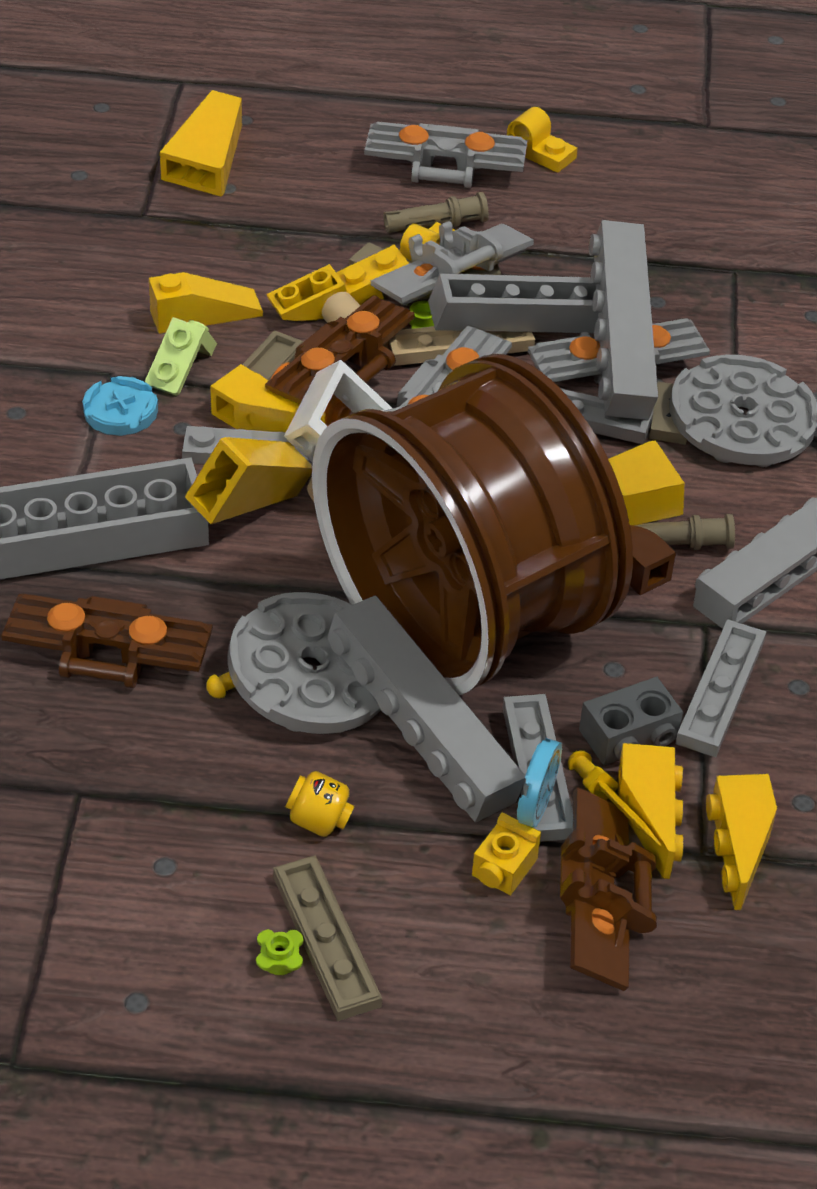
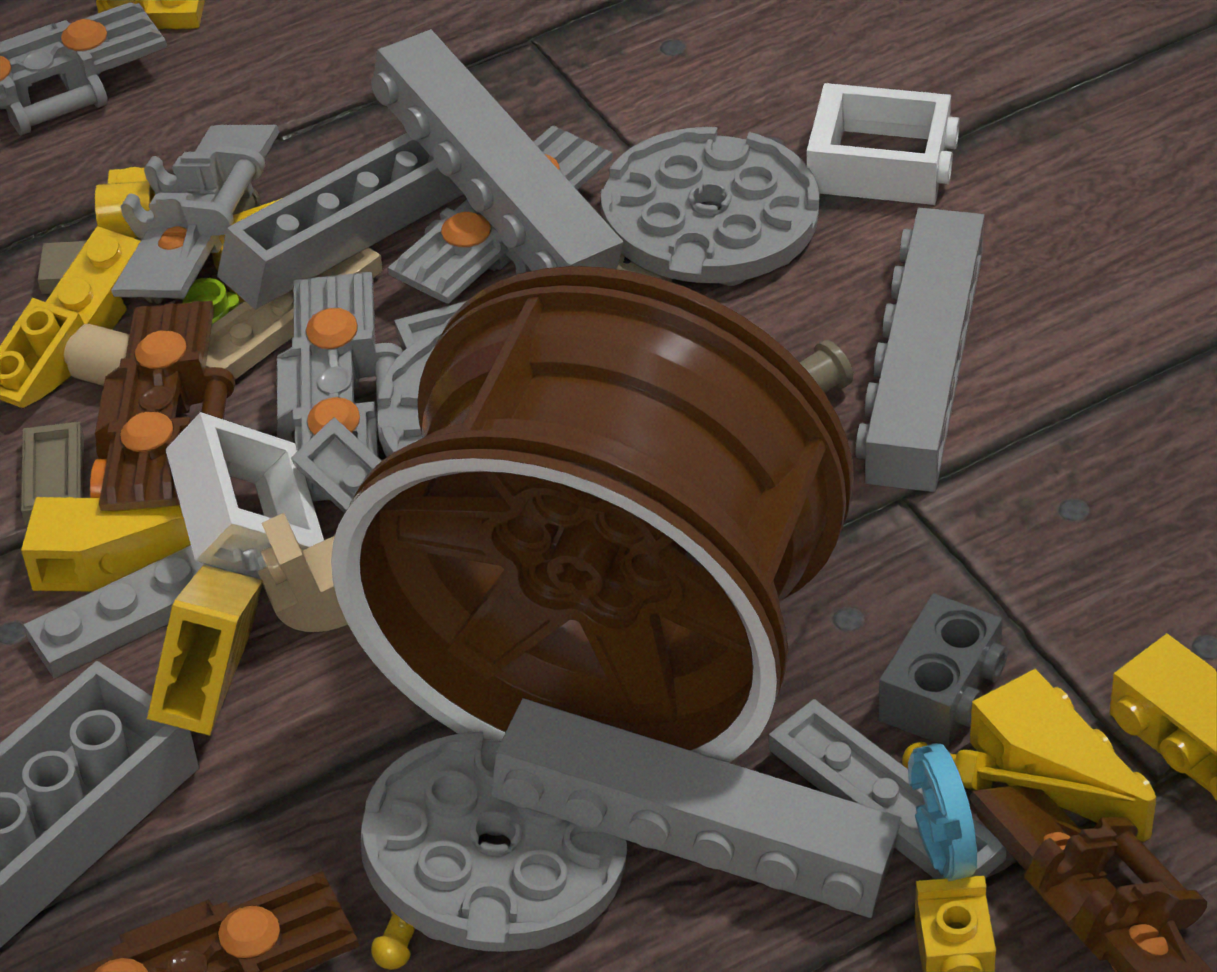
camera: 30 degrees left, 0 degrees up
(451, 210) = (116, 147): dark tan pin -> none
(721, 688) = (1001, 563): light grey plate -> none

